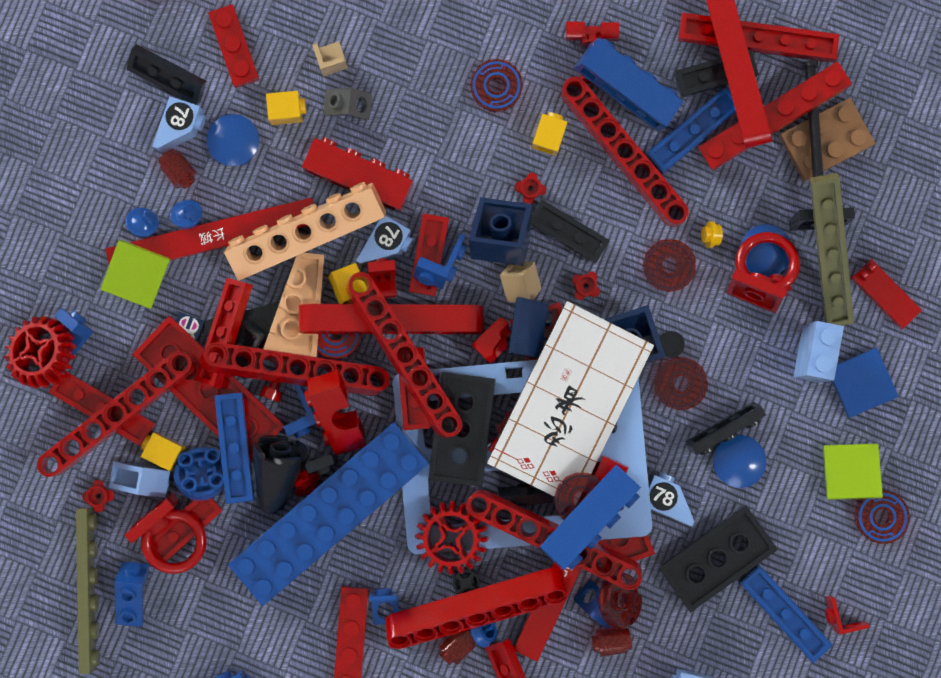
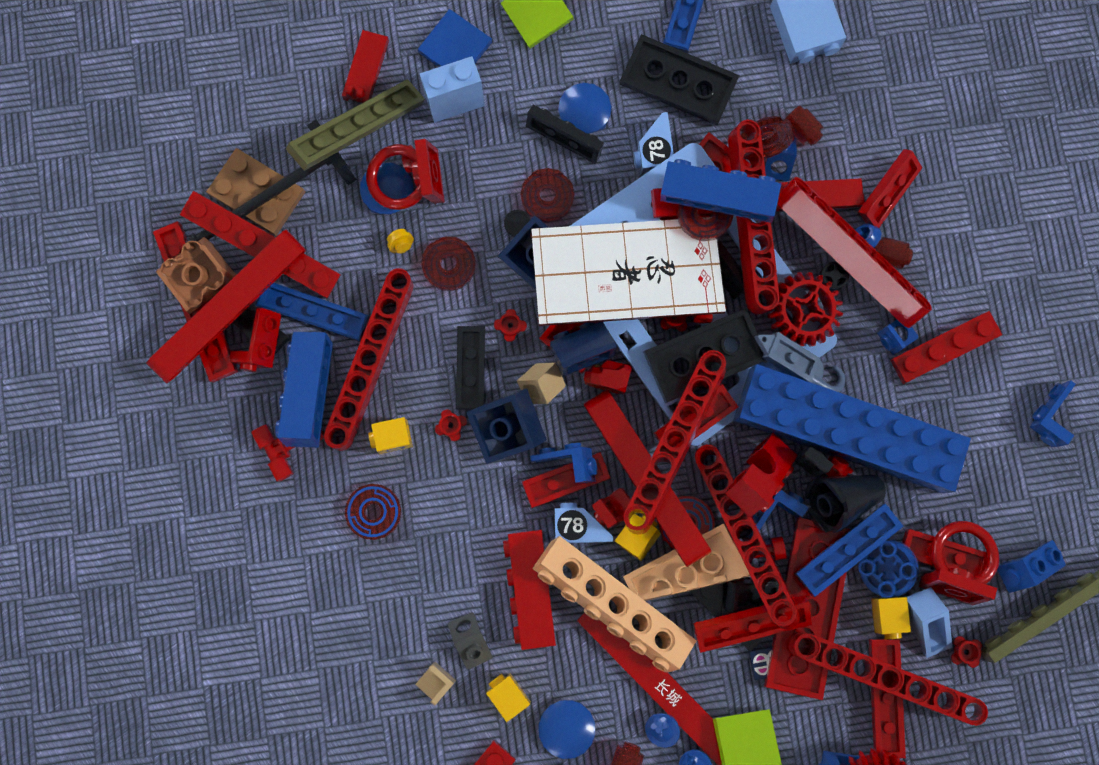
camera: 120 degrees left, 5 degrees down
(410, 504) = (796, 360): none -> sand blue plate
(688, 71) = (262, 343): none -> red bracket
(778, 49) = (196, 274): none -> nougat slope

